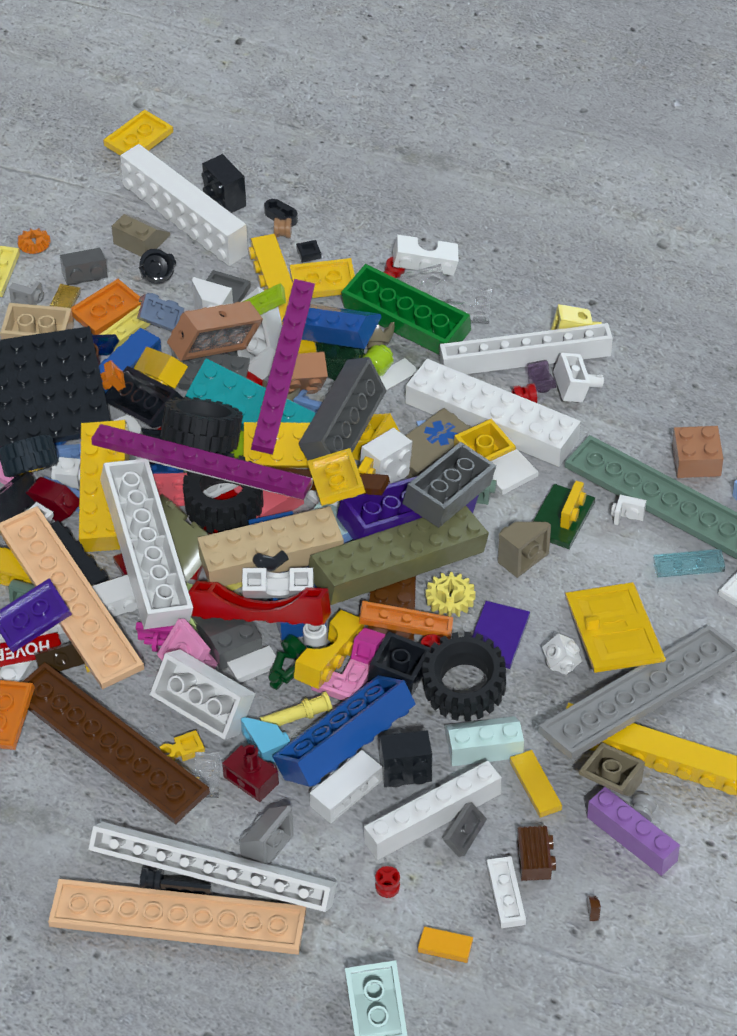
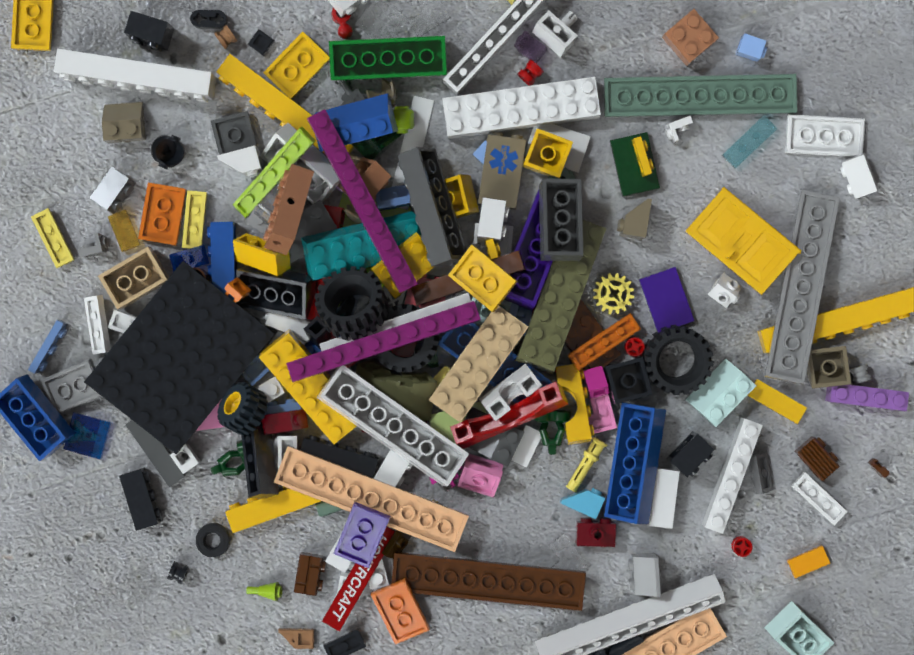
camera: 40 degrees left, 40 degrees up
(28, 246) = (57, 186): orange gear -> none
(159, 312) = (209, 194): sand blue bracket -> none
(184, 746) = (537, 543): yellow plate -> none
(202, 694) = (522, 505): white brick -> none
(268, 562) = (498, 384): black arm -> none

